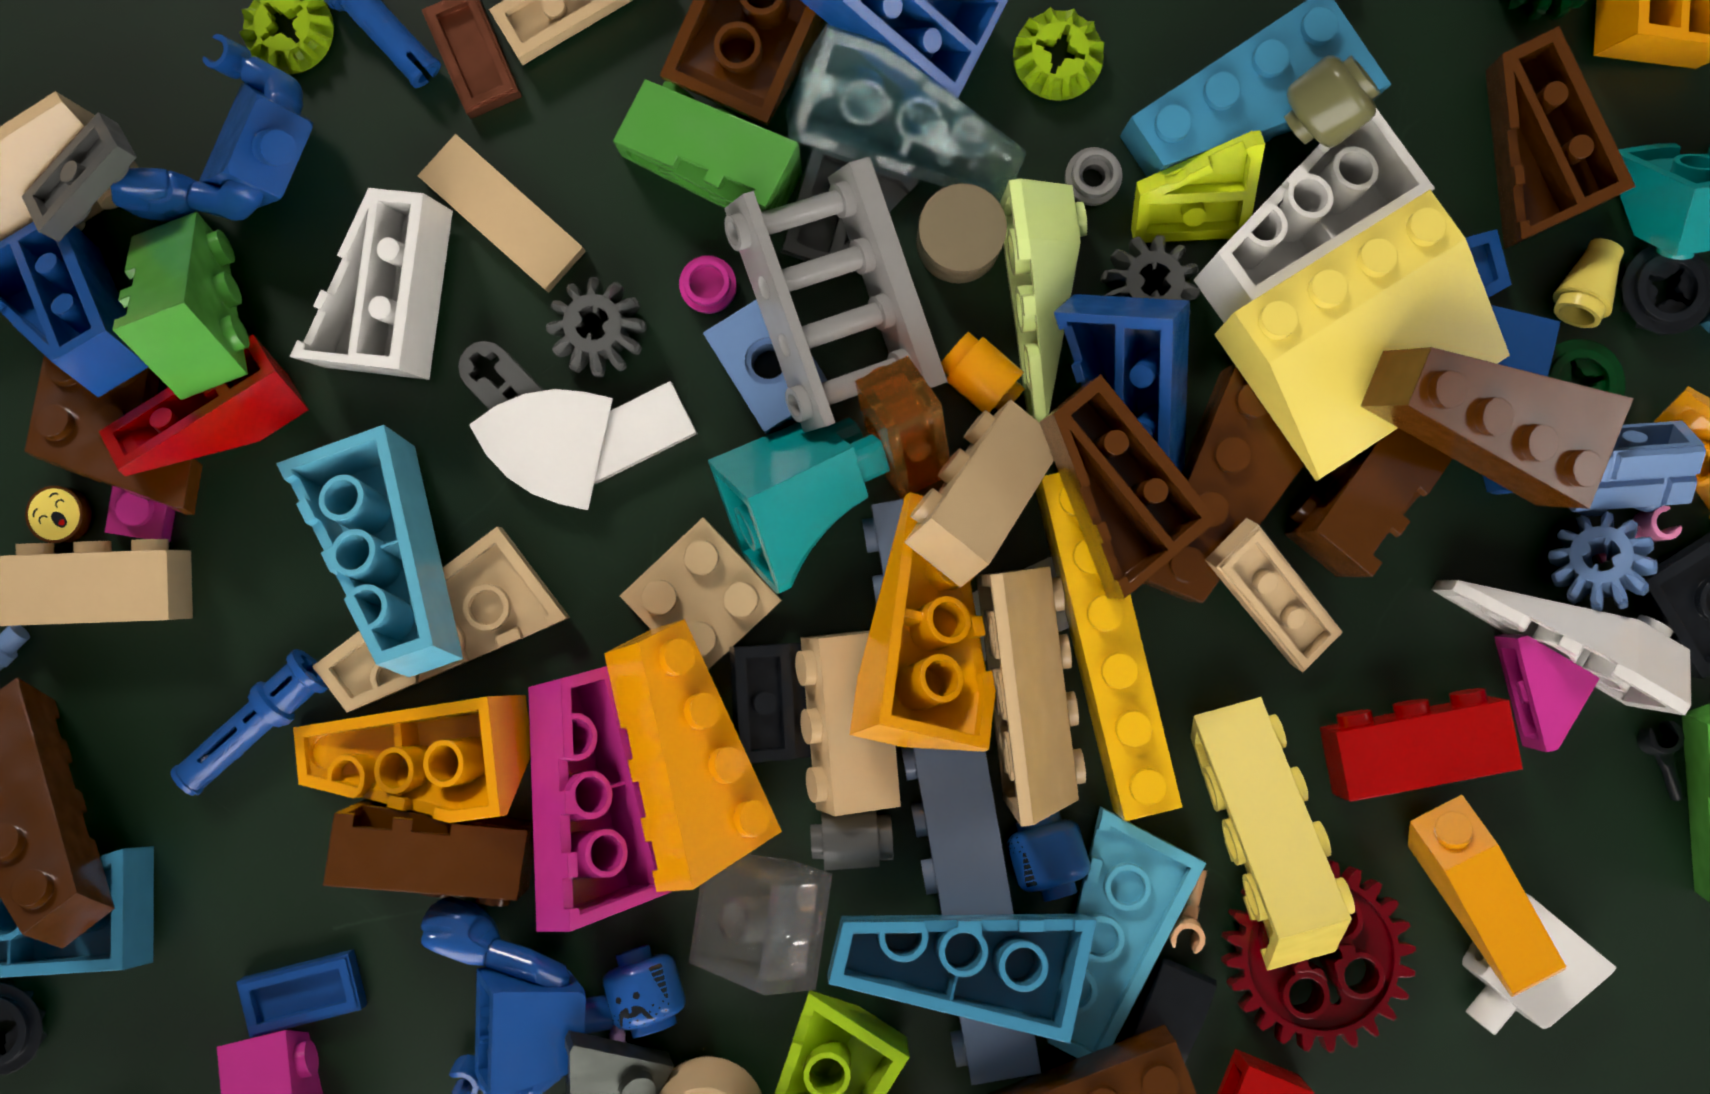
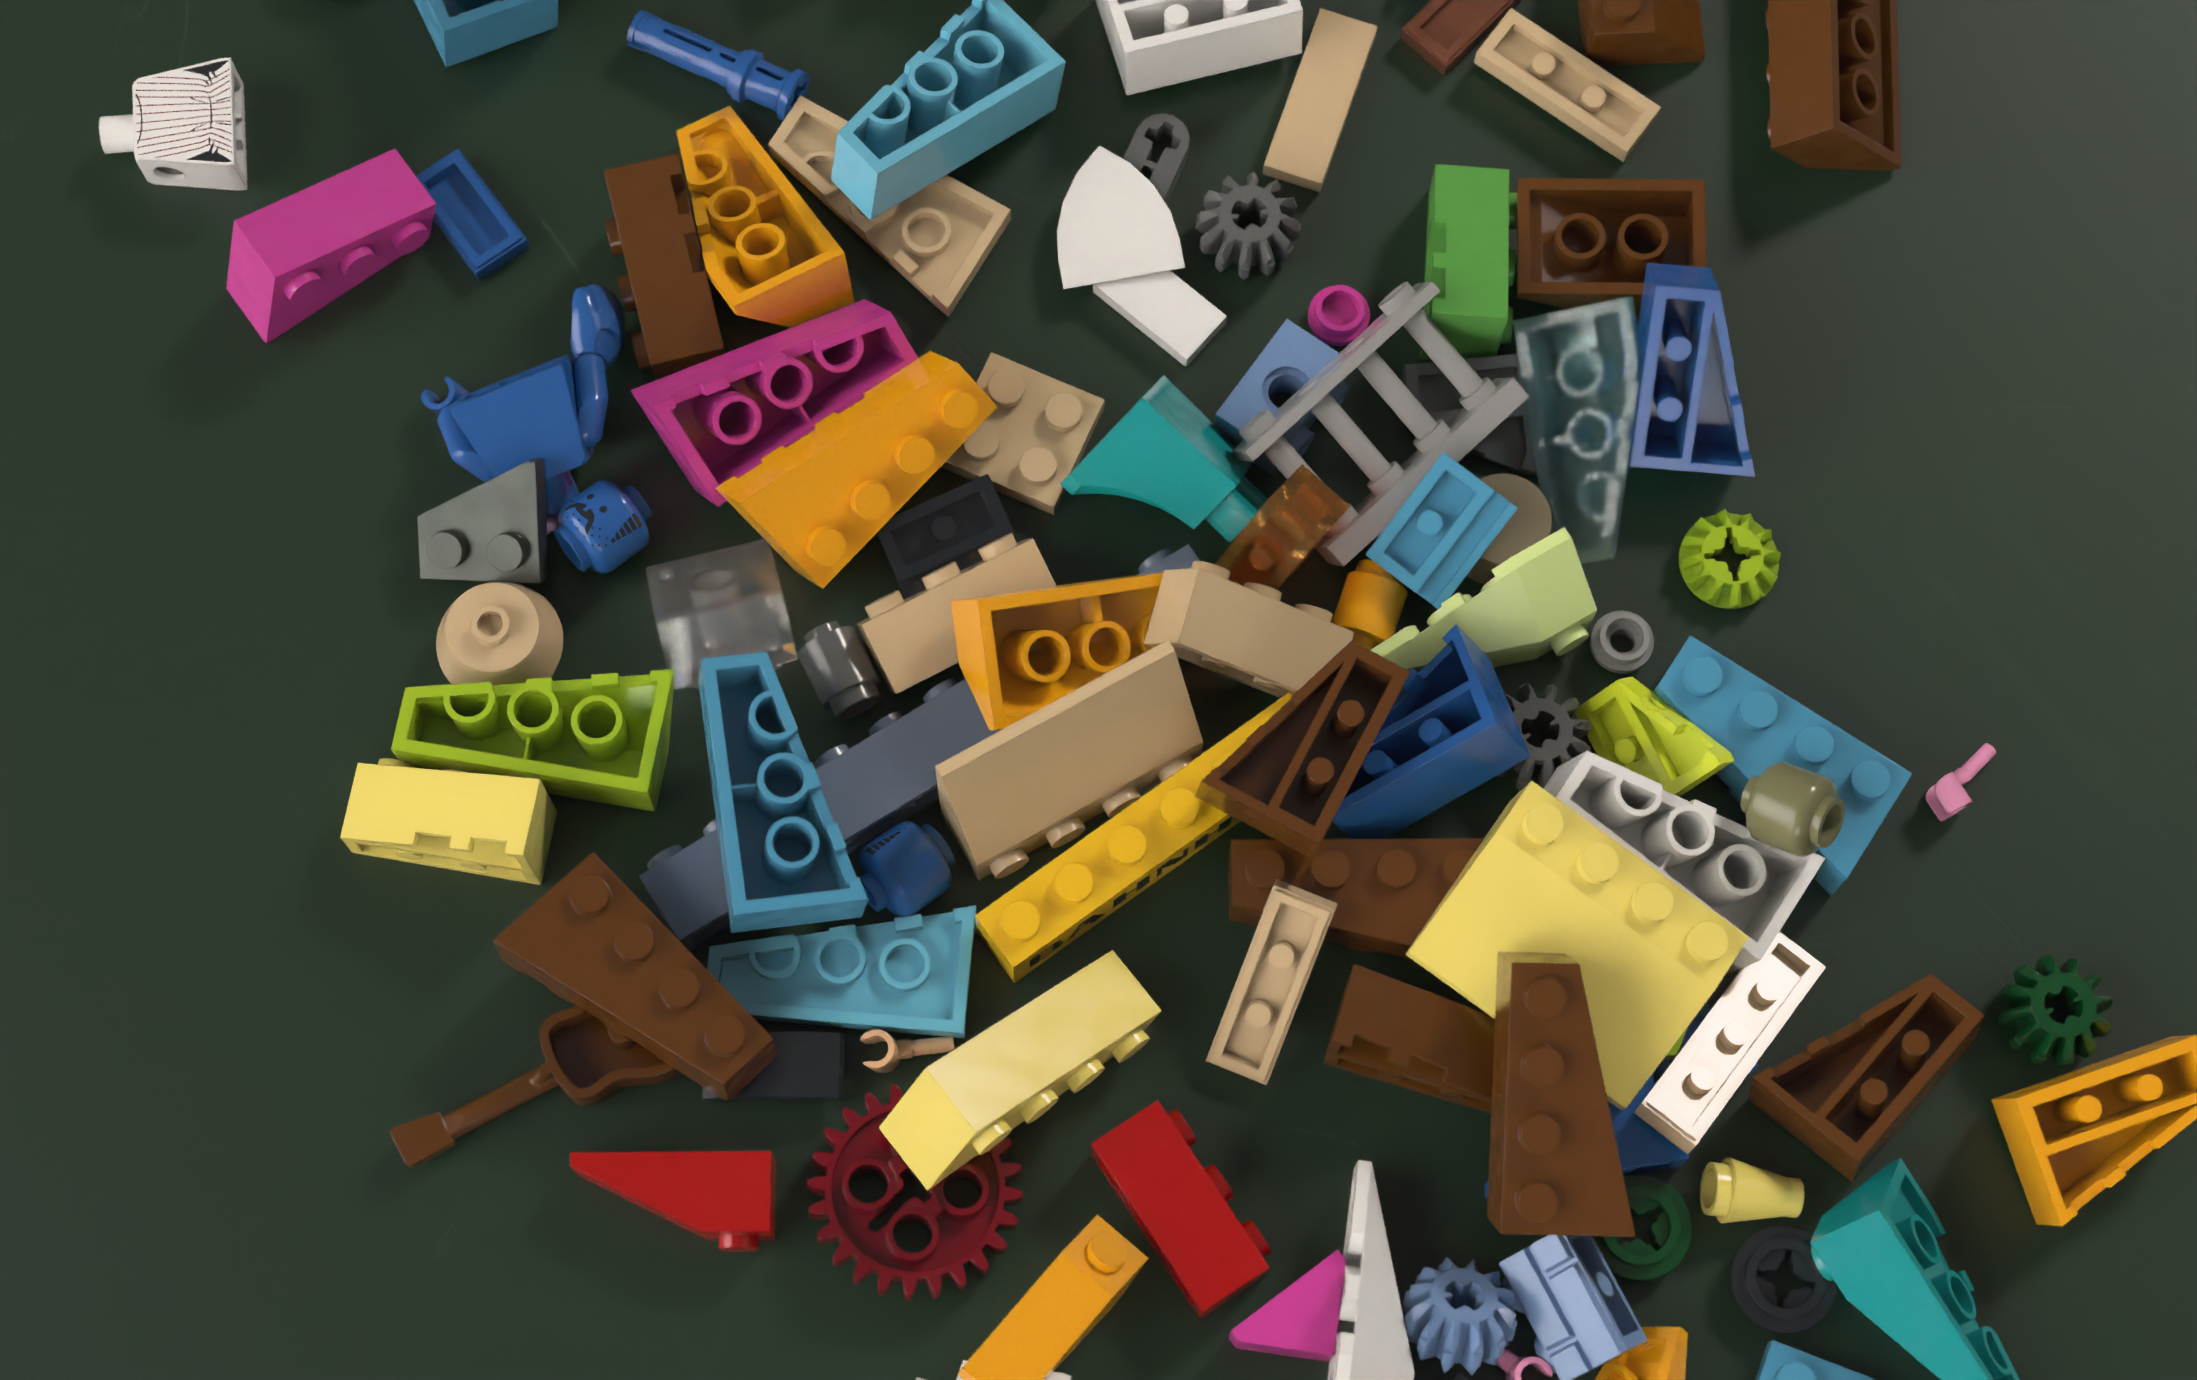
camera: 65 degrees right, 15 degrees down
(956, 286) = (1441, 530): none -> dark azure plate
(1516, 290) = (1728, 1043): none -> tile

